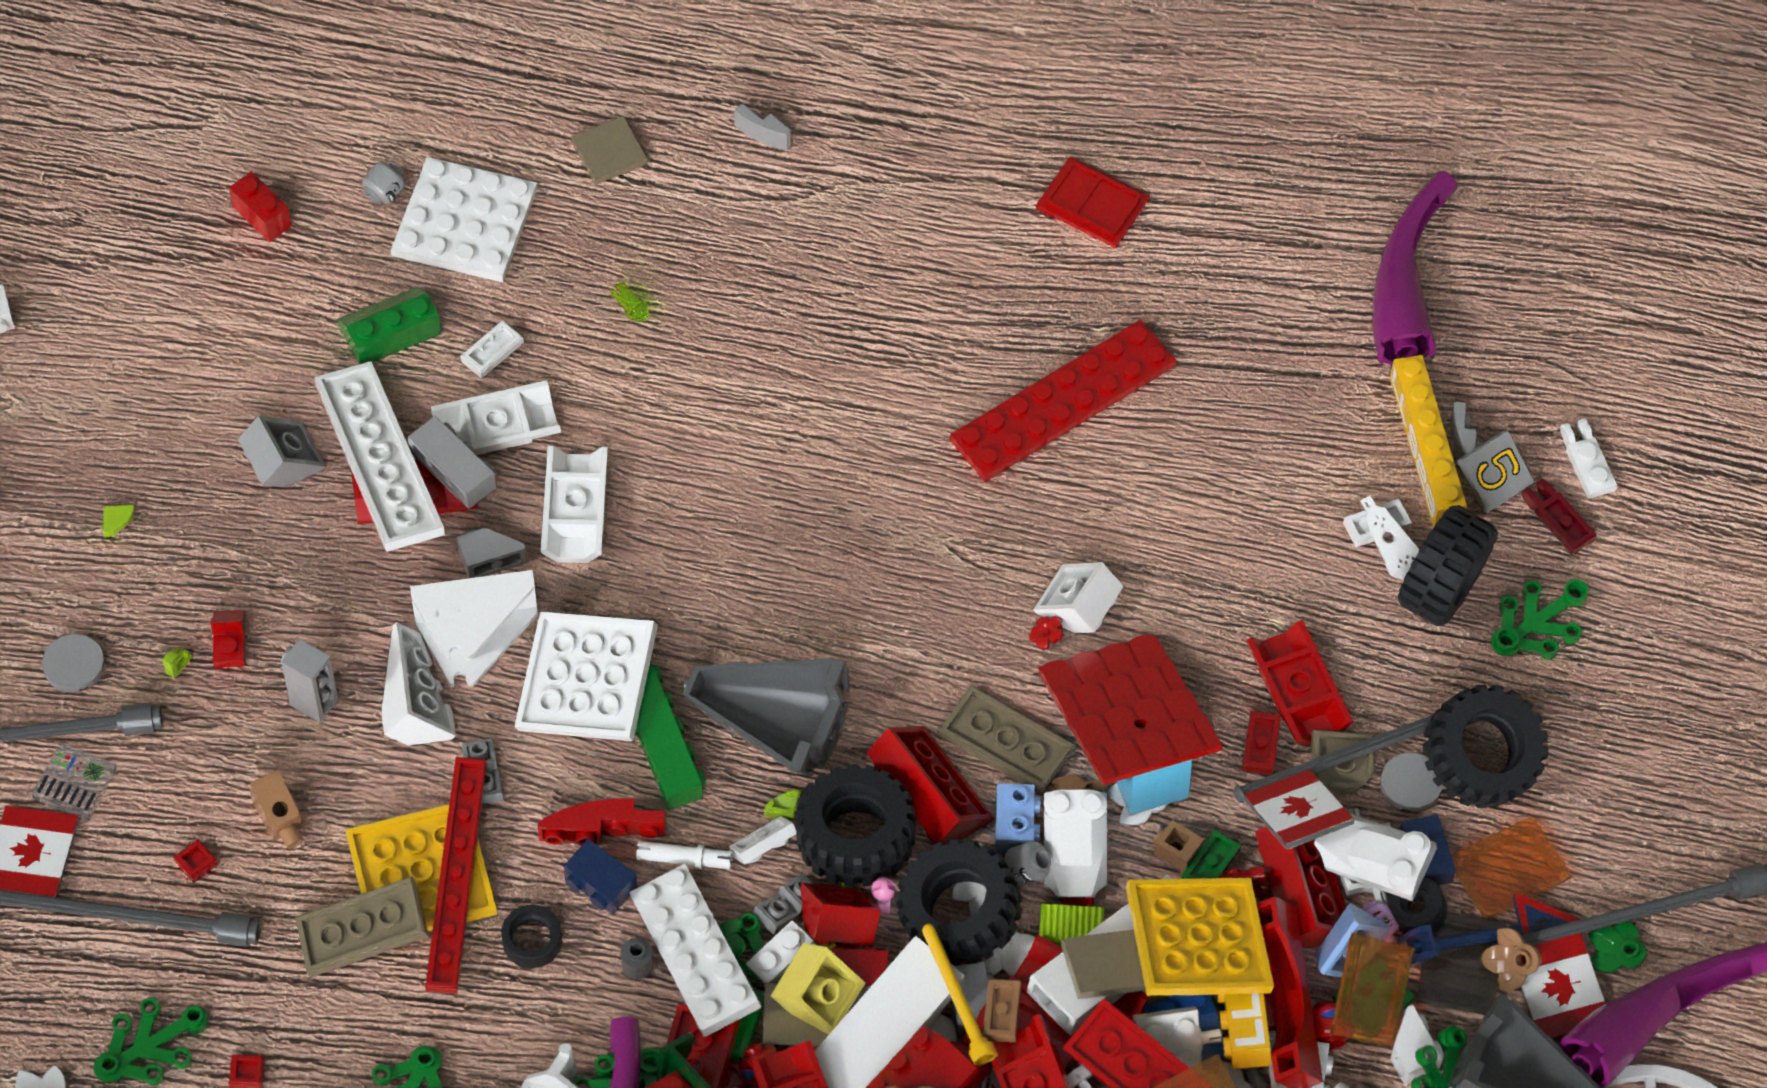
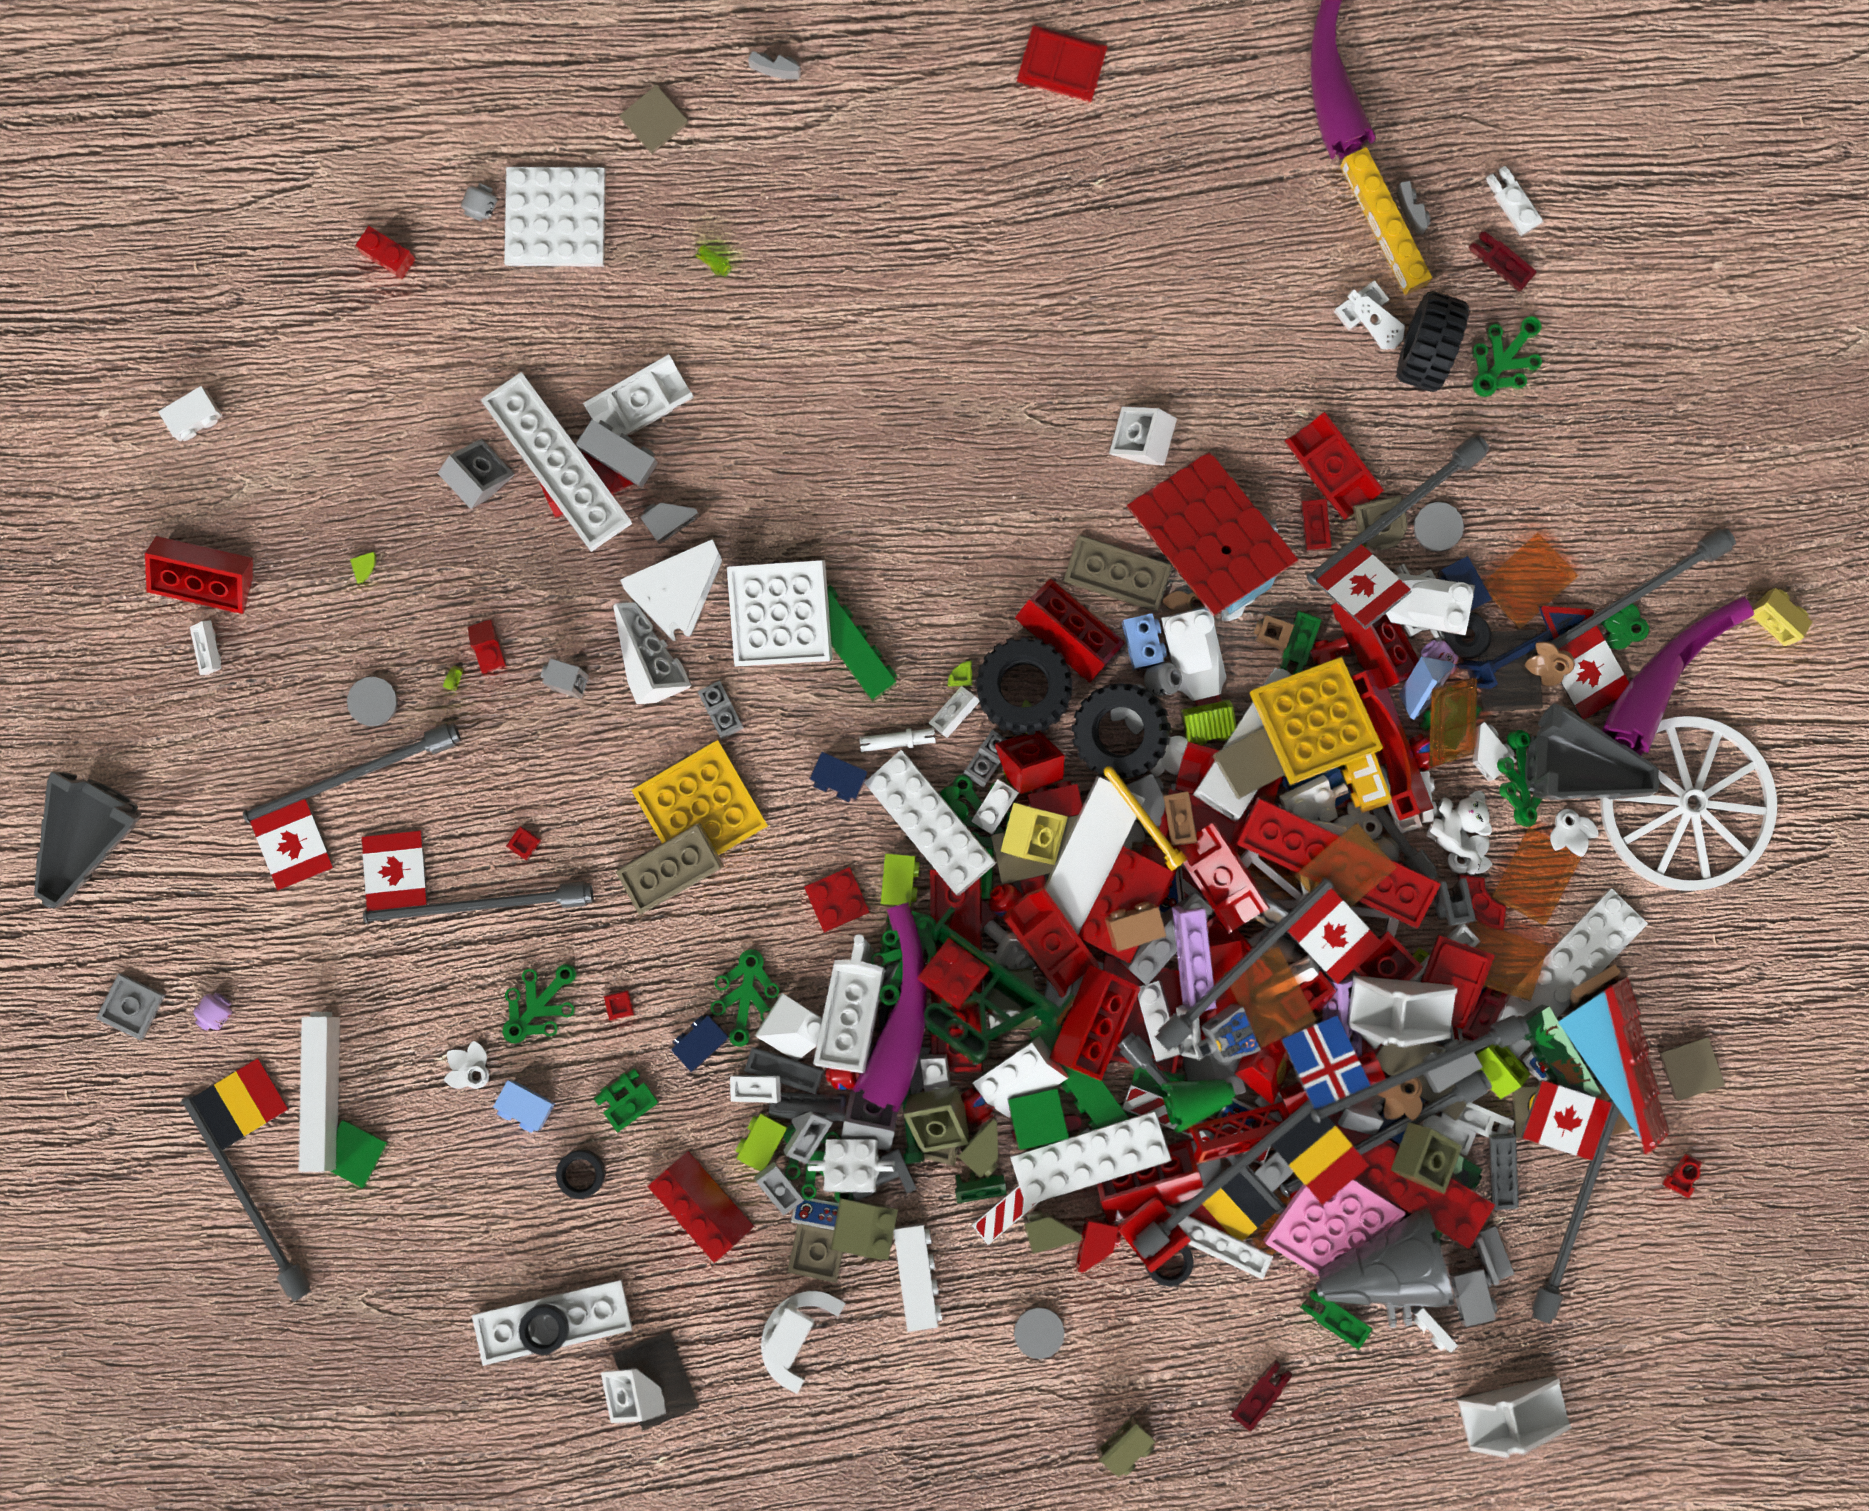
camera: 15 degrees left, 25 degrees up
(74, 781) = (407, 802): clear tile -> none
(277, 809) = (566, 782): medium nougat torso -> none
(390, 325) = (525, 332): green slope -> none
(456, 875) = (729, 806): red tile -> none
(492, 349) = (615, 333): white plate -> none
(527, 914) = (819, 836): black tyre -> none
(553, 1017) = (836, 899): none -> red plate
(574, 505) = (723, 458): white piece -> none
(599, 817) = (815, 733): red slope -> none
(636, 958) = (887, 847): dark grey brick -> none
(642, 1000) = (898, 880): none -> lime brick
(777, 706) = (934, 602): dark grey cone -> none
(883, 890) = (1060, 735): bright pink arm -> none
(1046, 631) = (1125, 472): red plant -> none
(1062, 400) = (1085, 257): red plate -> none
(1495, 471) = (1446, 236): light grey tile -> none
(1517, 726) = (1522, 497): black tyre -> none

